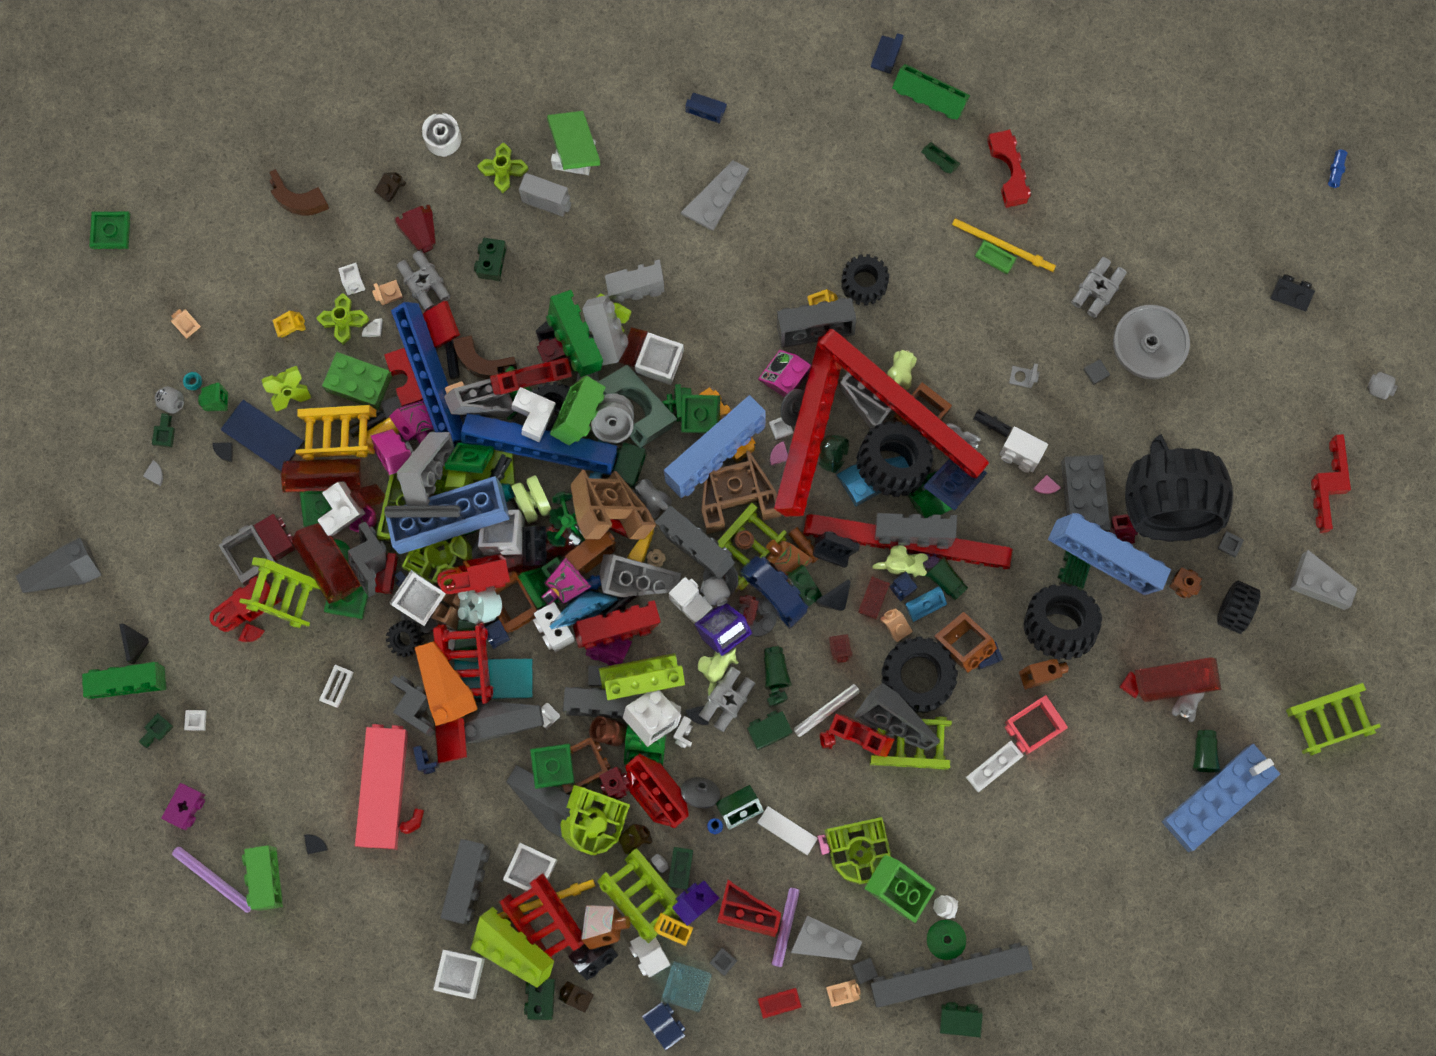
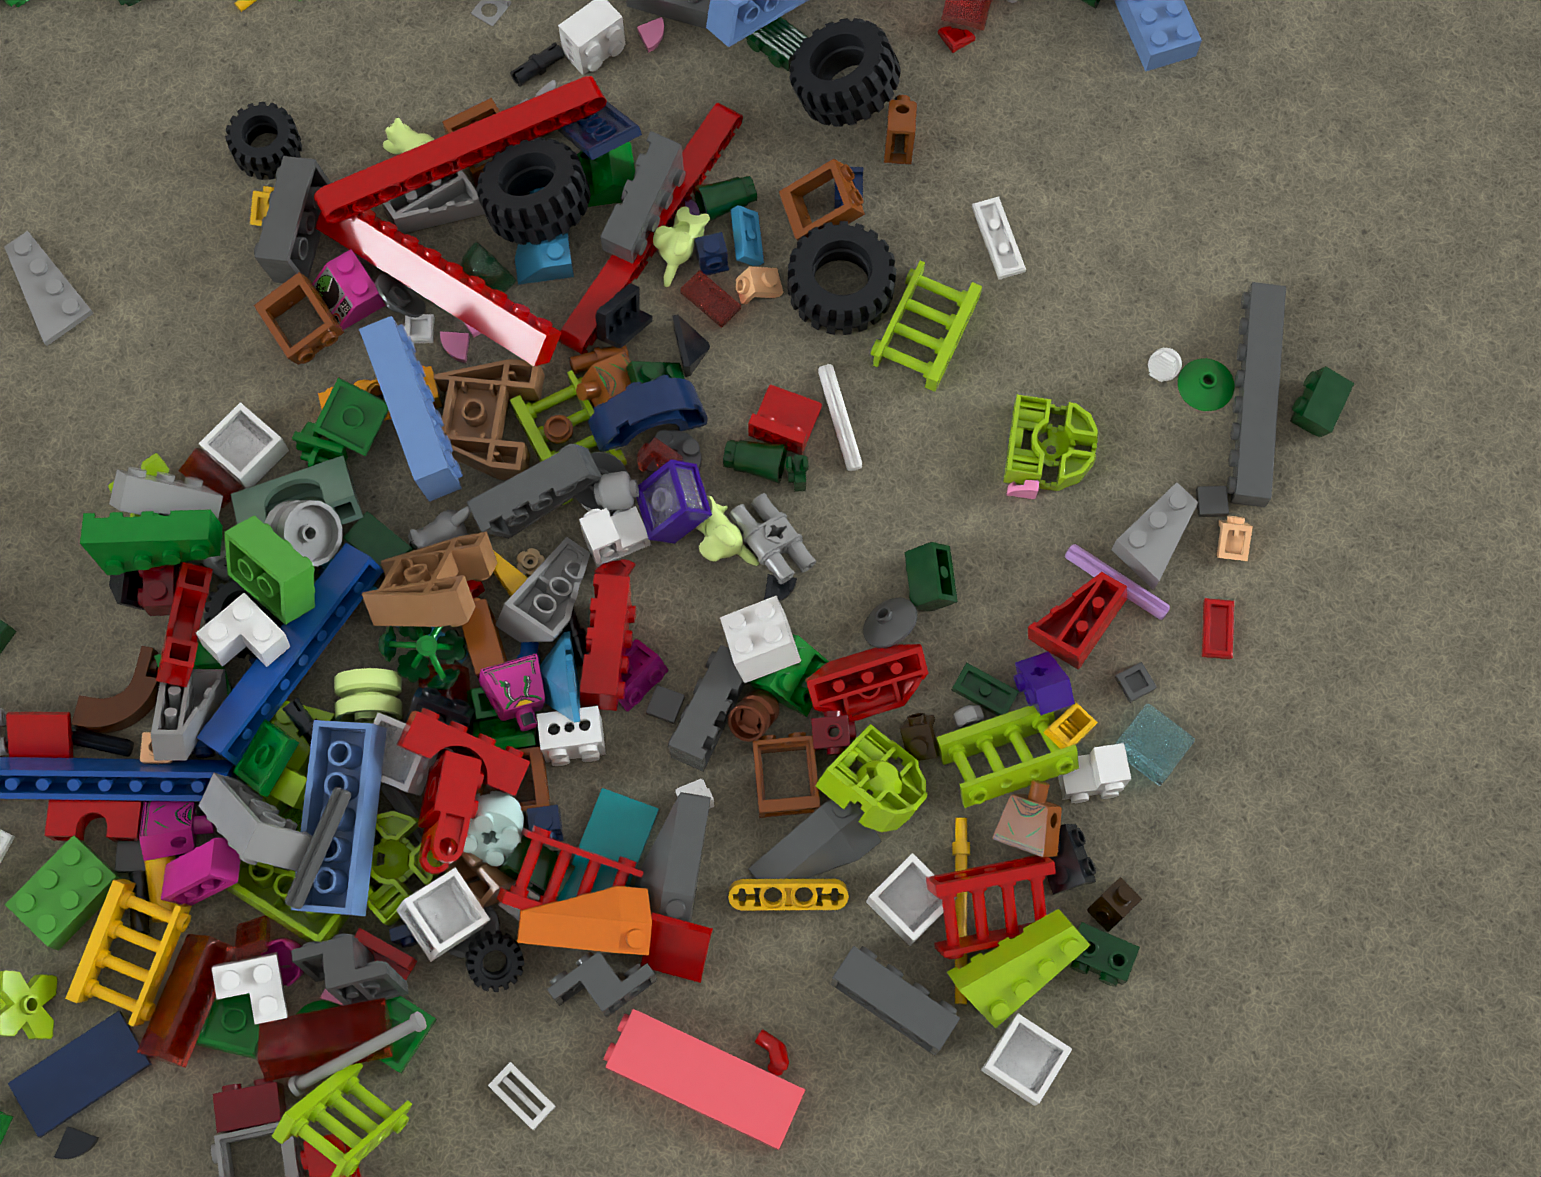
camera: 70 degrees left, 5 degrees down
(295, 558) = (299, 1084): none -> light grey bar
(421, 758) = (683, 1002): dark blue bracket -> none
(505, 796) = (788, 900): none -> yellow beam
(511, 545) = (427, 736): none -> red arch
(552, 766) = (775, 808): green plate -> none
(635, 283) = (118, 434): light grey wedge -> none
(641, 676) = (695, 635): lime fence -> none
(664, 1026) = (1197, 793): dark blue brick -> none
(670, 612) = (618, 568): none -> red tile
(683, 729) = (794, 616): white bracket -> none
(713, 821) = (946, 616): blue pin -> none
(769, 730) = (839, 498): dark green brick -> none
(776, 349) = (283, 299): none -> dark orange window
(787, 830) = (986, 529): white tile -> none
(811, 677) = (784, 419): none -> red bracket
(827, 740) = (882, 427): red plate -> none
(840, 648) = (761, 367): clear red bracket -> none
(861, 734) = (895, 378): red arch -> none
(891, 713) = (884, 325): dark grey wedge -> none
(900, 888) = (1122, 405): bright green brick -> none
(1052, 715) = (960, 140): coral window -> none

